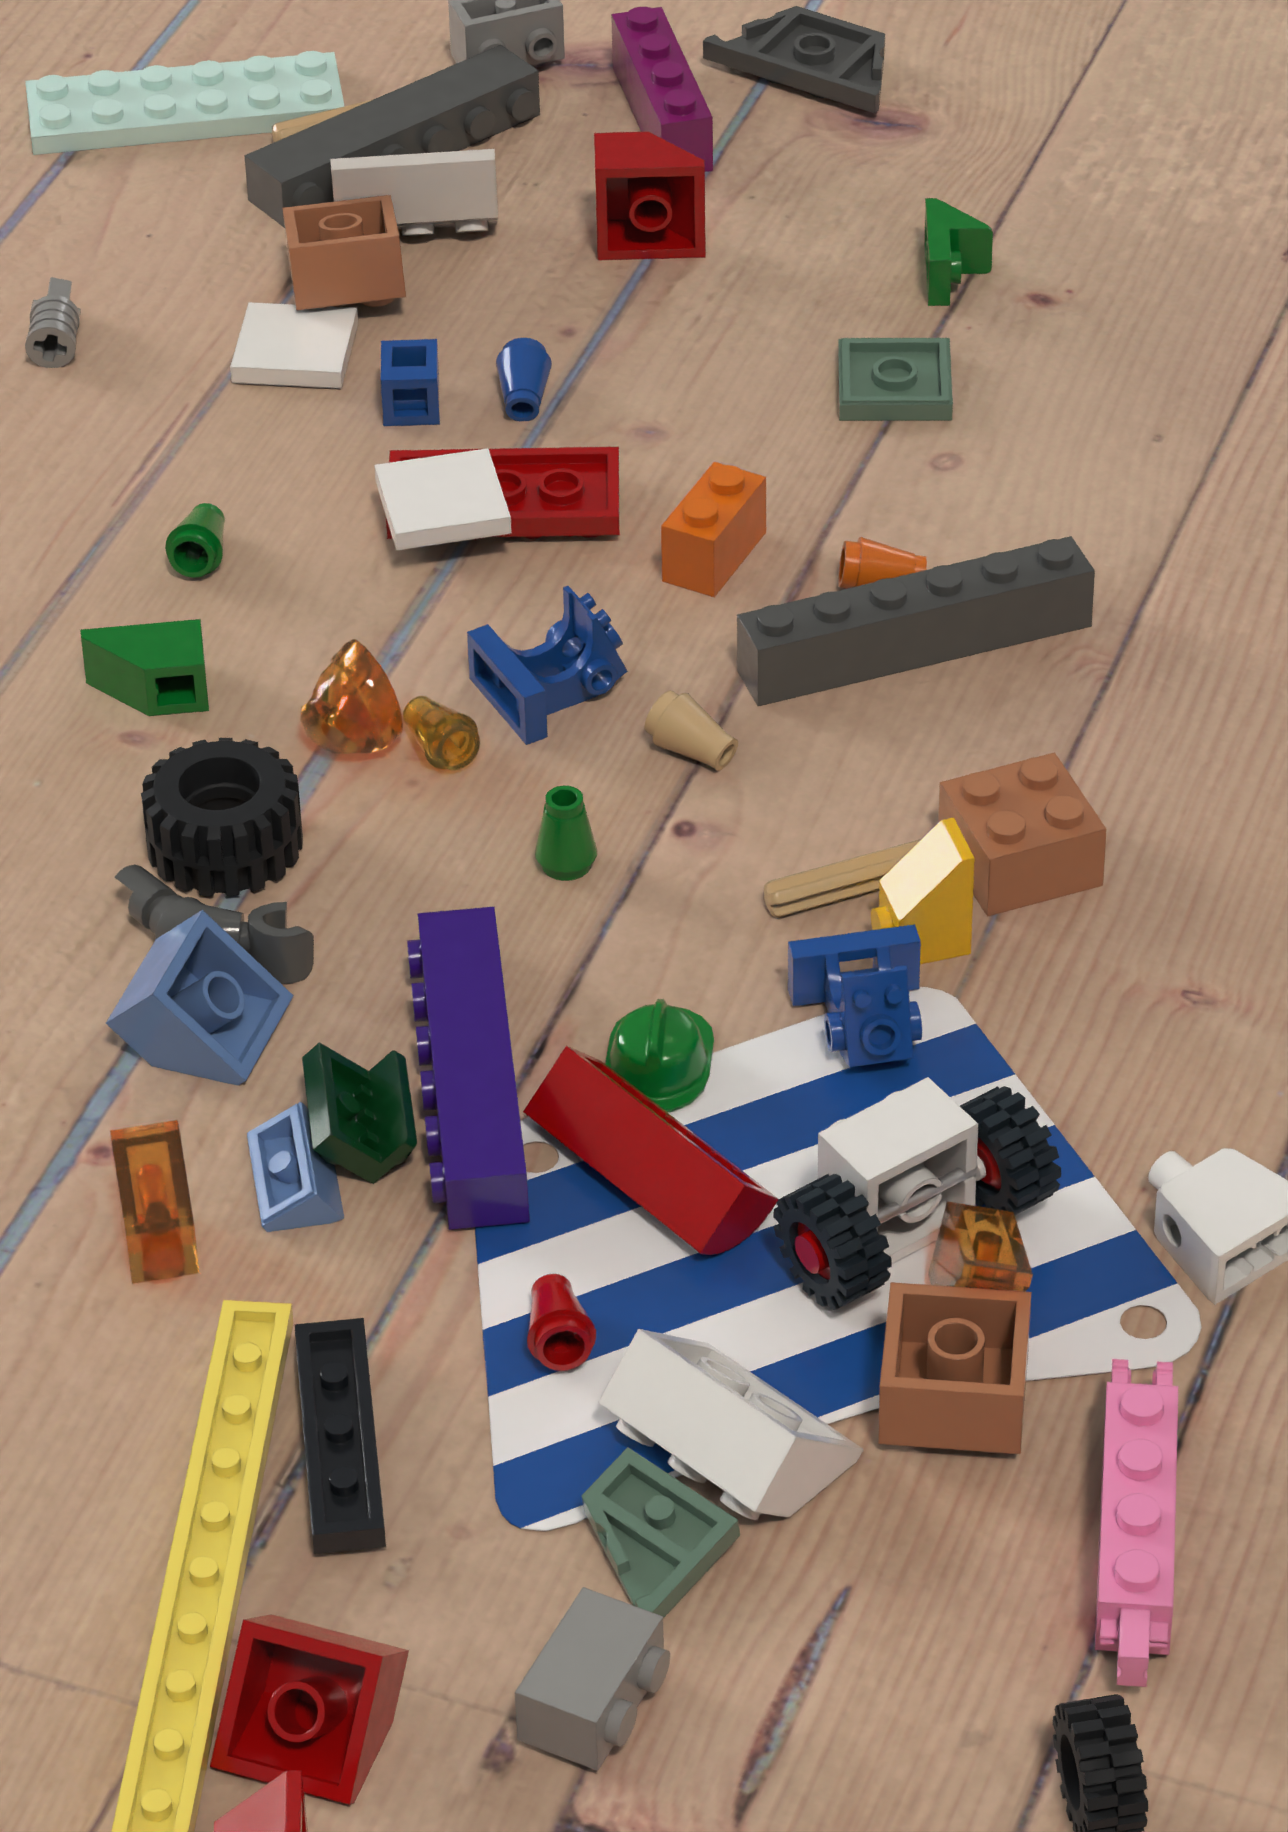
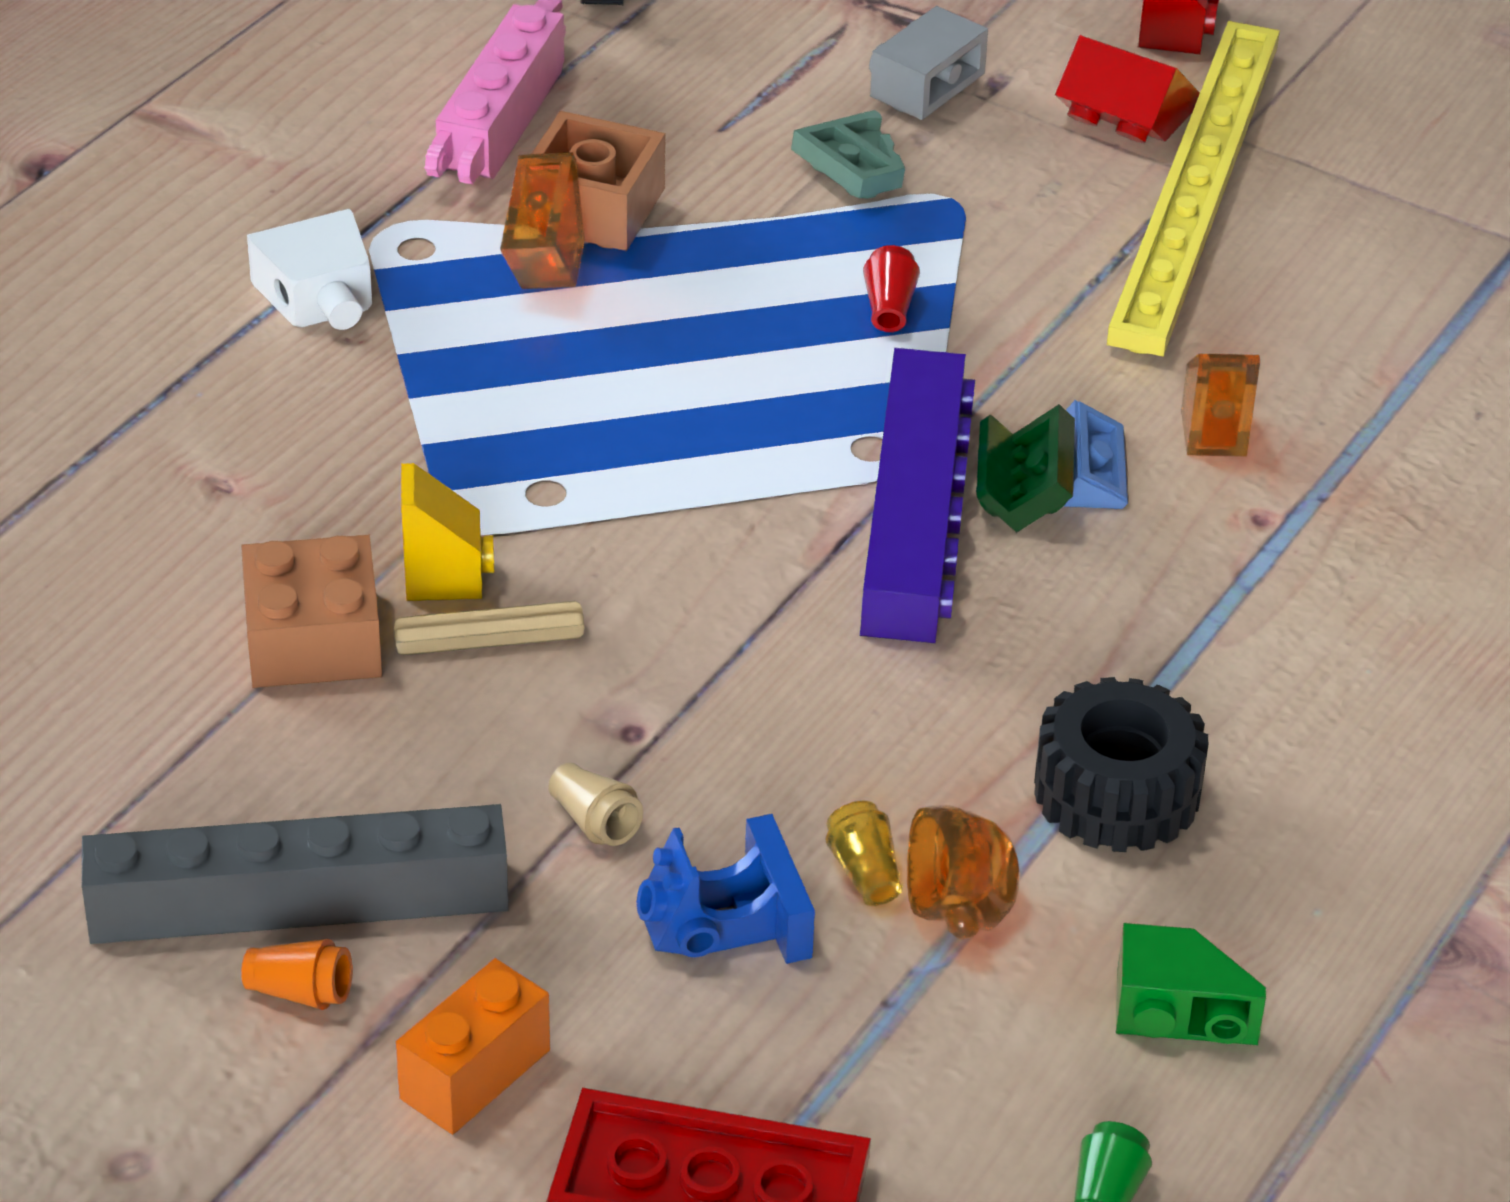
camera: 170 degrees left, 0 degrees up
(200, 1004) = (1167, 590): medium blue slope -> none
(279, 949) = (1135, 655): dark grey piece -> none
(339, 1436) = (1082, 252): black plate -> none
(442, 499) = (796, 1131): white tile -> none
(565, 835) = (766, 691): green cone -> none
(649, 1154) = (775, 399): red brick -> none
(663, 1053) = (734, 501): green piece -> none
(725, 1425) = (774, 196): white slope -> none
(866, 1008) = (536, 498): blue tile -> none
(890, 1179) = (574, 291): brick -> none

